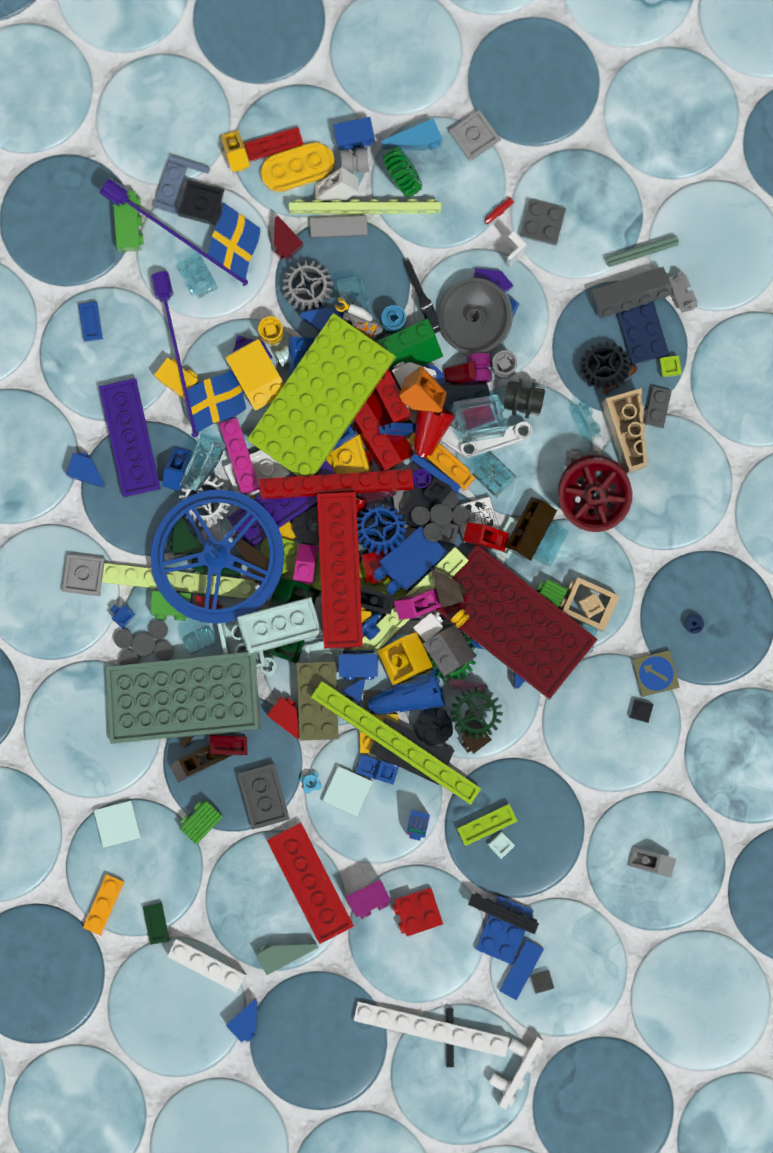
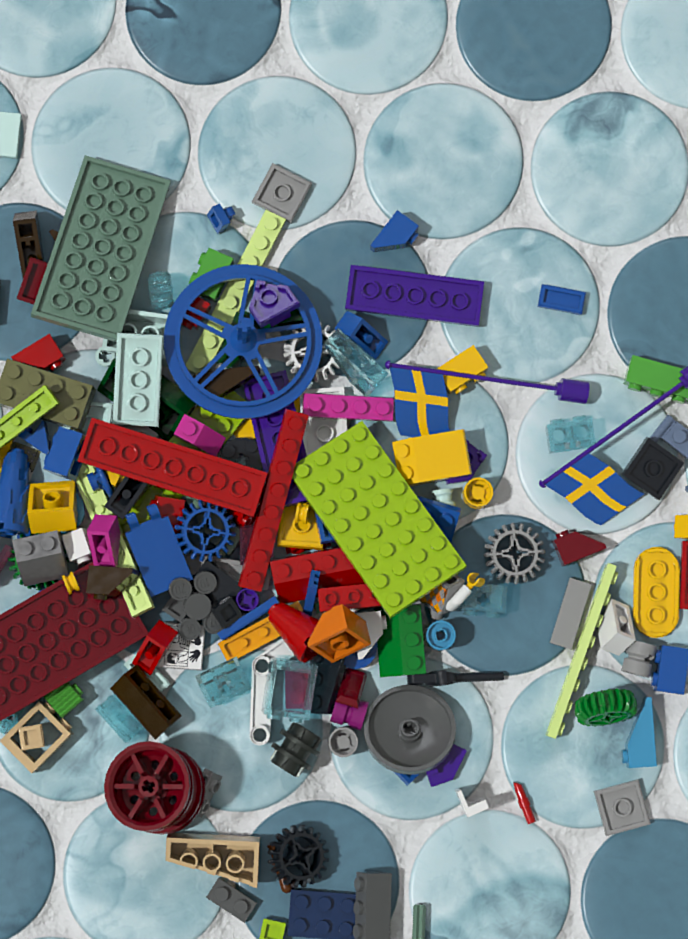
camera: 110 degrees right, 0 degrees up
(144, 644) = (181, 231): dark grey piece -> none
(179, 542) = (272, 303): none -> plate
(319, 317) = (471, 554): blue slope -> none
(337, 459) = (302, 513): none -> yellow bush
(543, 222) = (492, 848): dark grey plate -> none
(584, 414) = (255, 812): clear light blue hinge -> none

